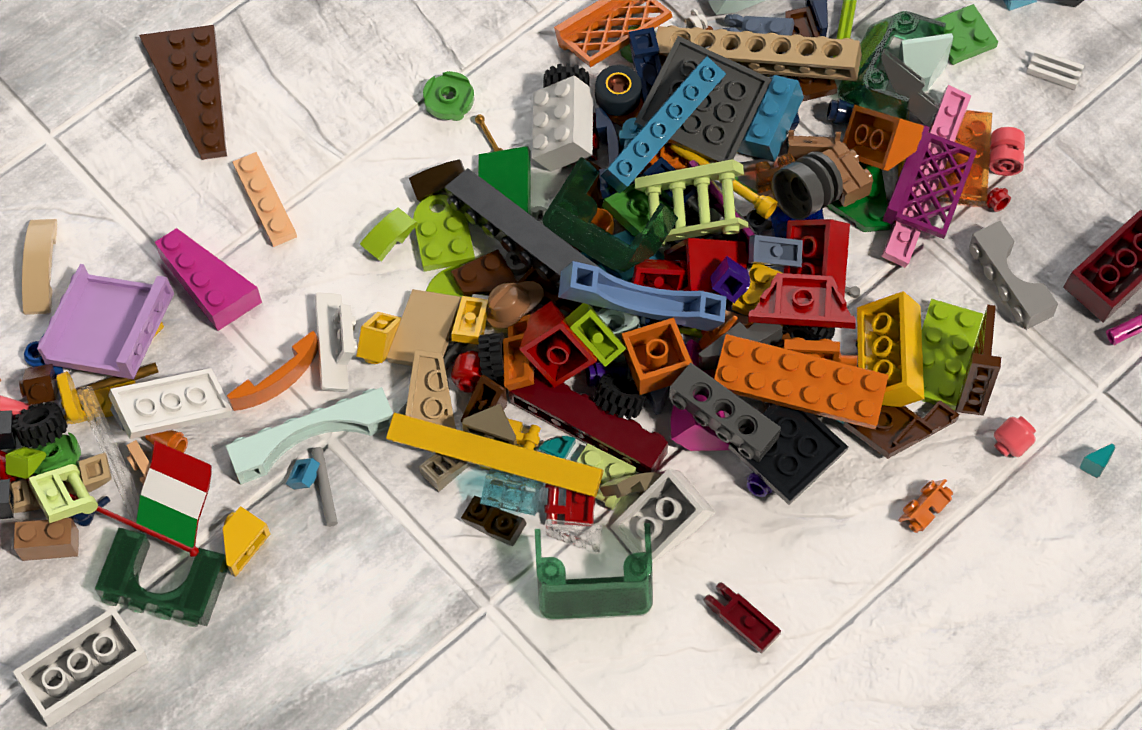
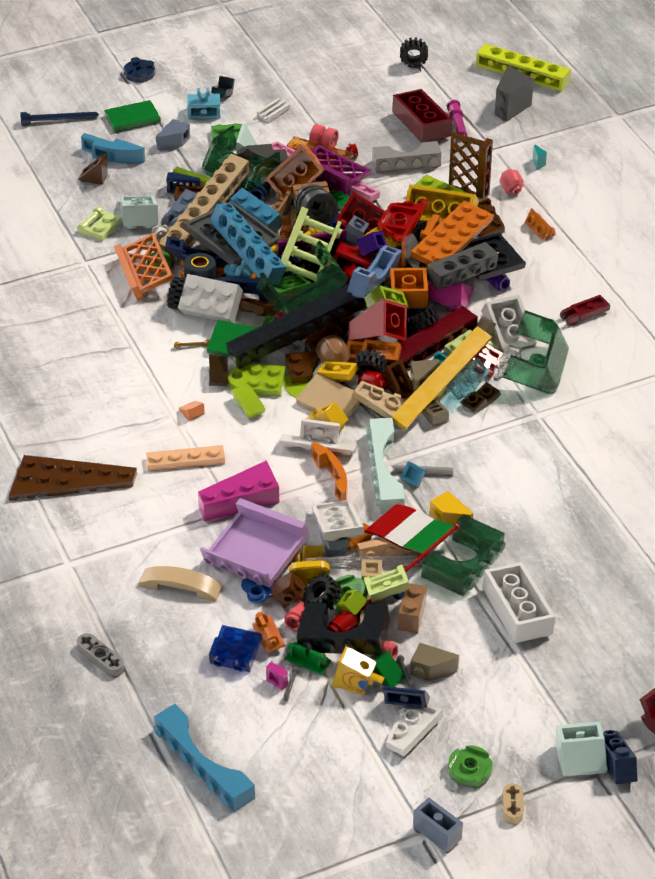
camera: 75 degrees left, 20 degrees down
(357, 176) = (192, 409): none -> orange slope
(453, 108) = (152, 361): bright green plate -> none

